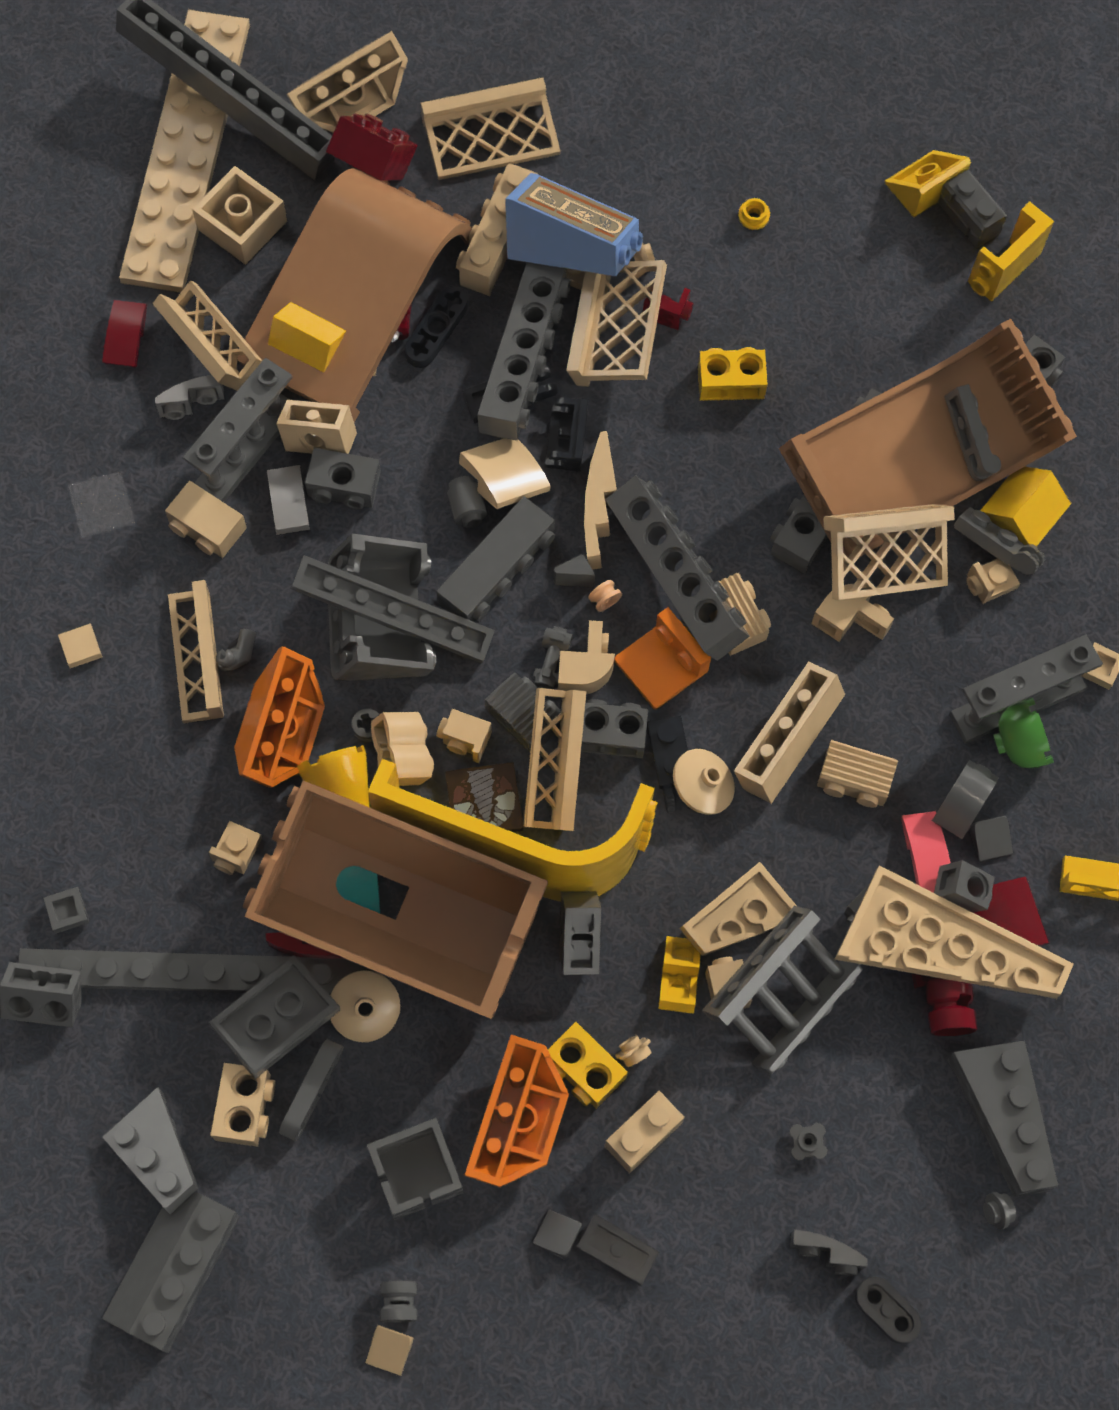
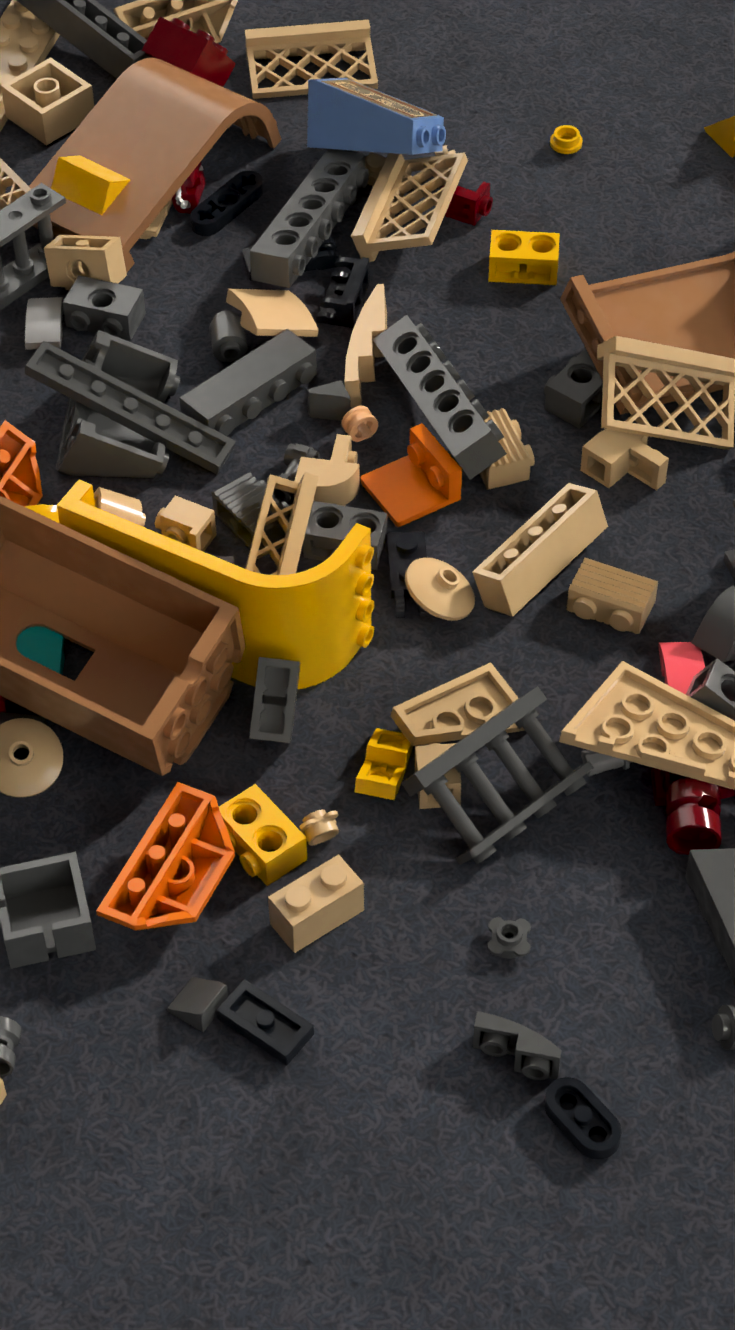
camera: 10 degrees right, 20 degrees down
(487, 250) = (285, 148): tan brick -> none

